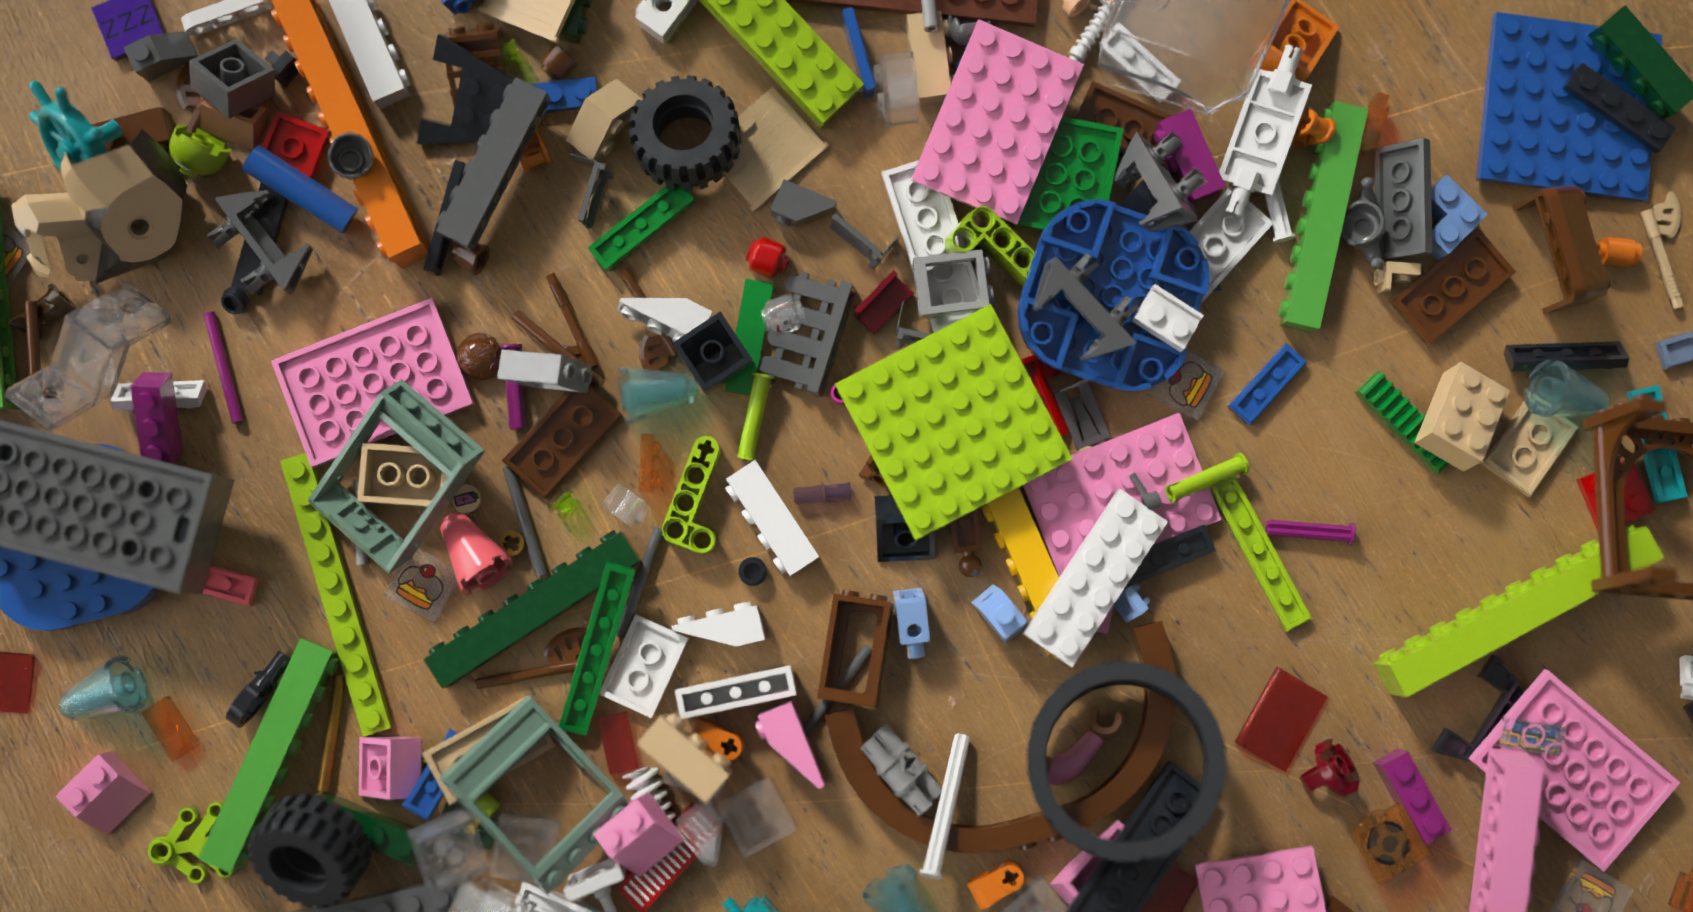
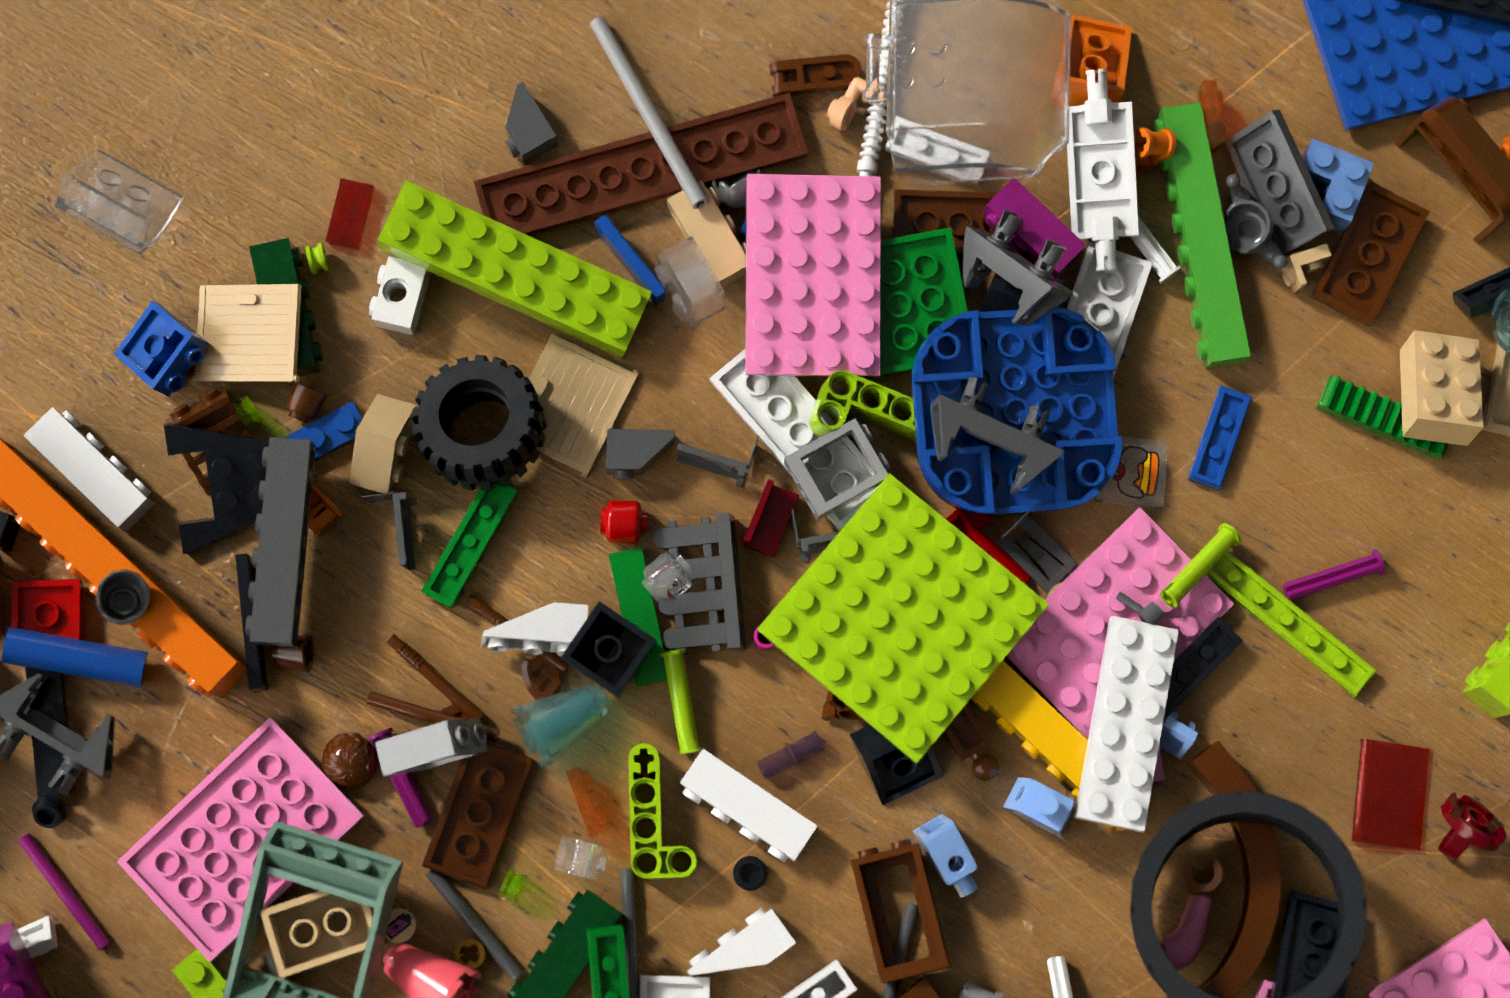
camera: 25 degrees left, 5 degrees down
(1167, 318) = (1085, 410): white plate -> none

